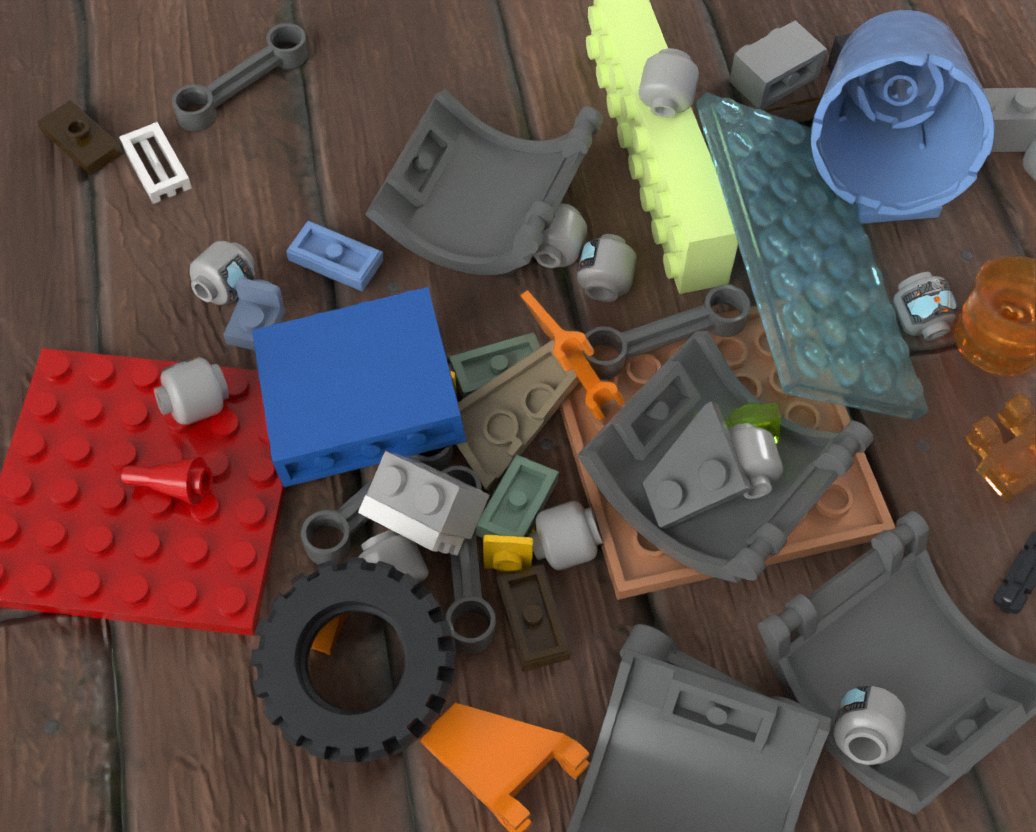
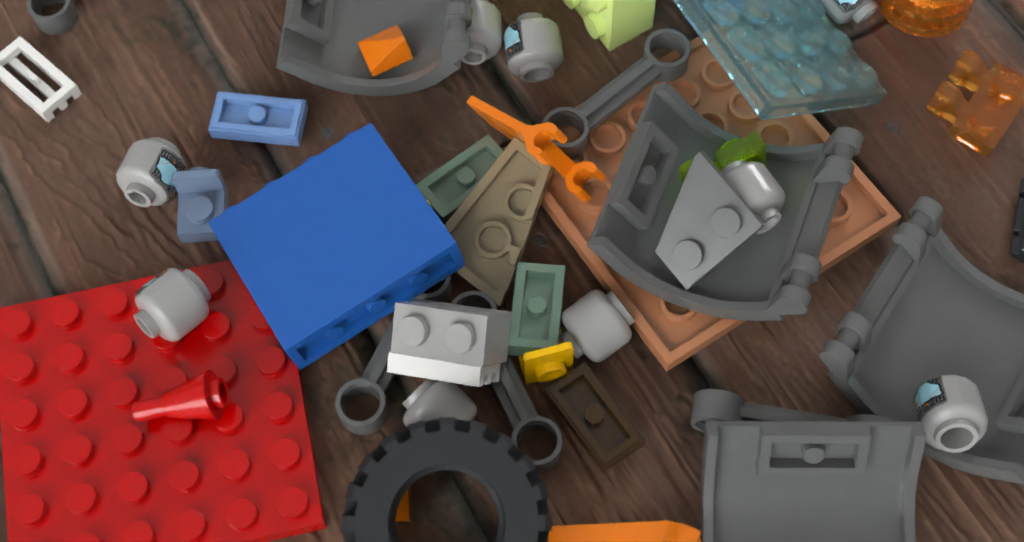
camera: 15 degrees left, 5 degrees up
(470, 230) = (385, 50): none -> orange slope

